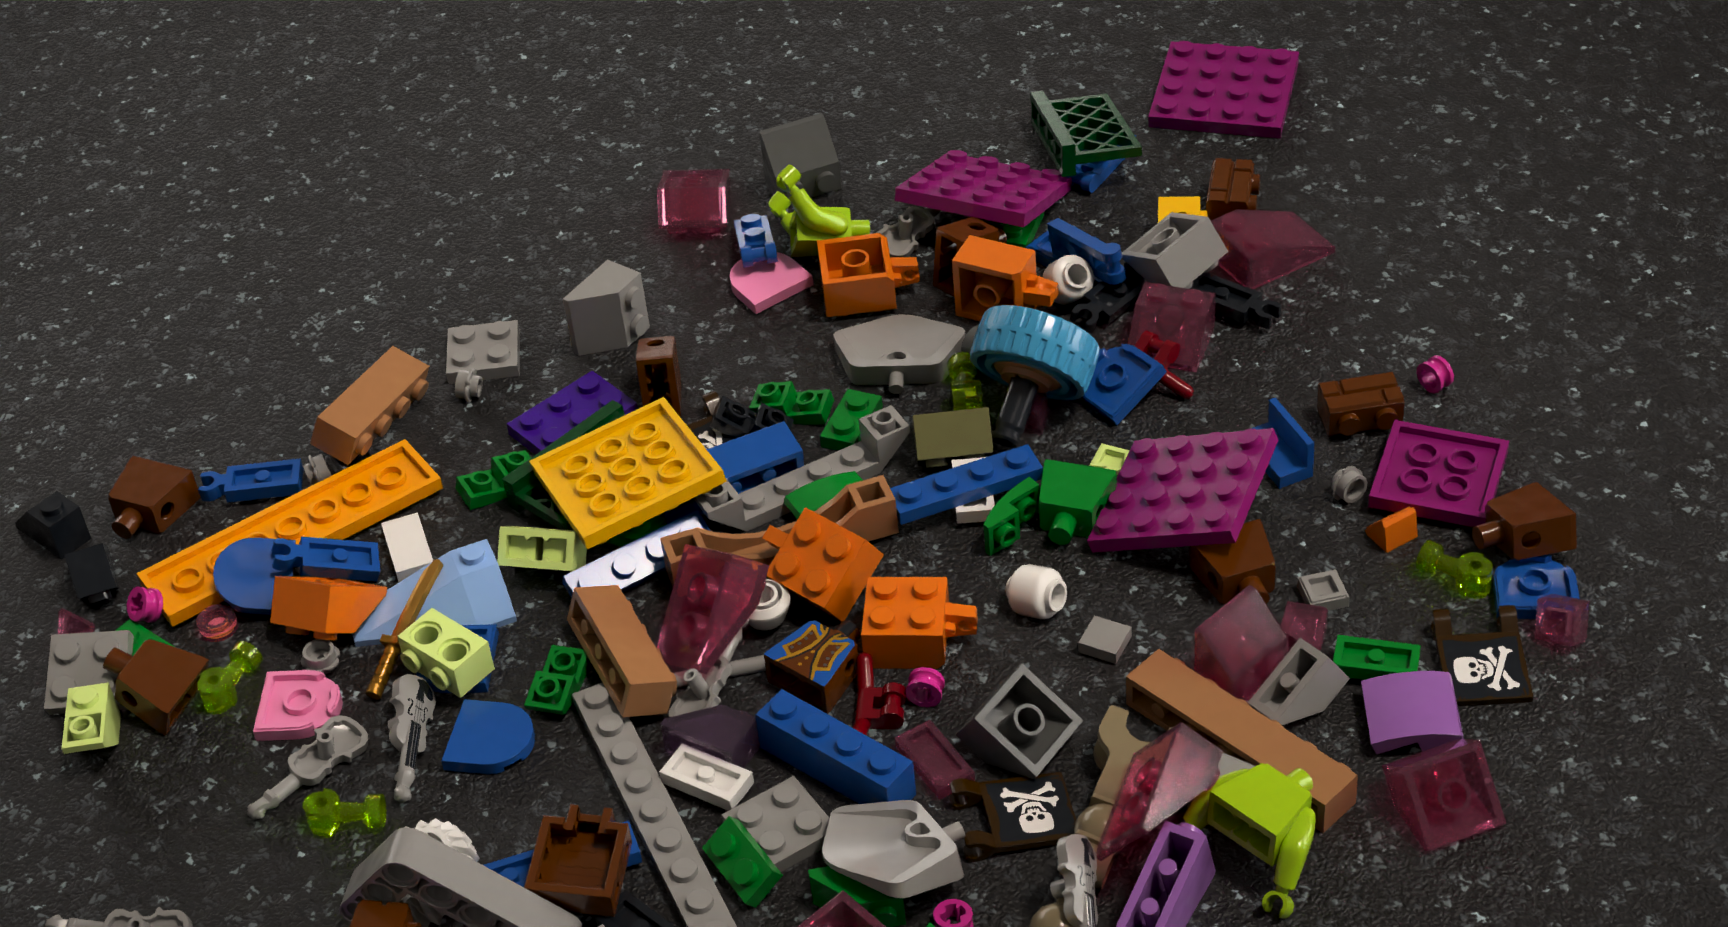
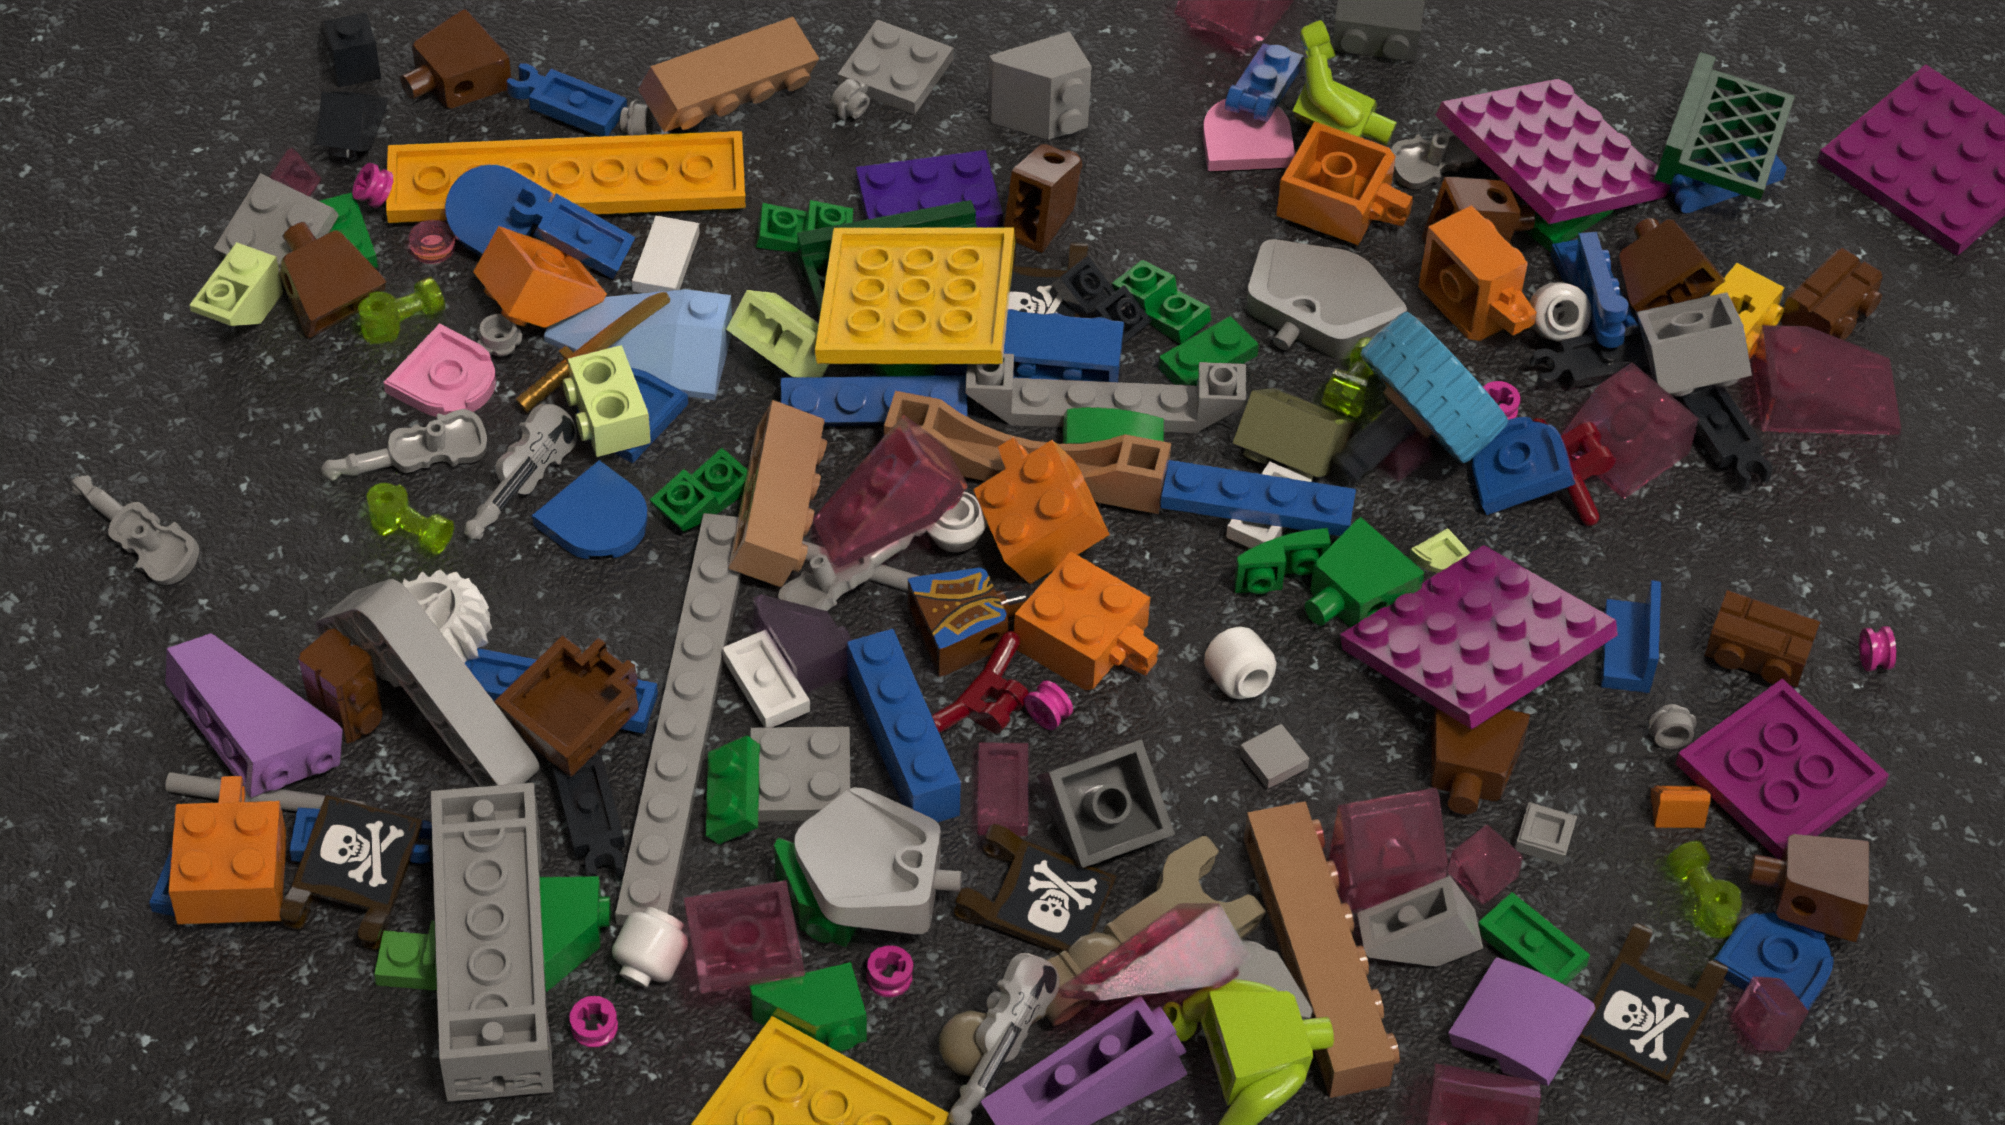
camera: 25 degrees right, 10 degrees up
(1116, 216) = (1665, 266): none -> reddish brown torso

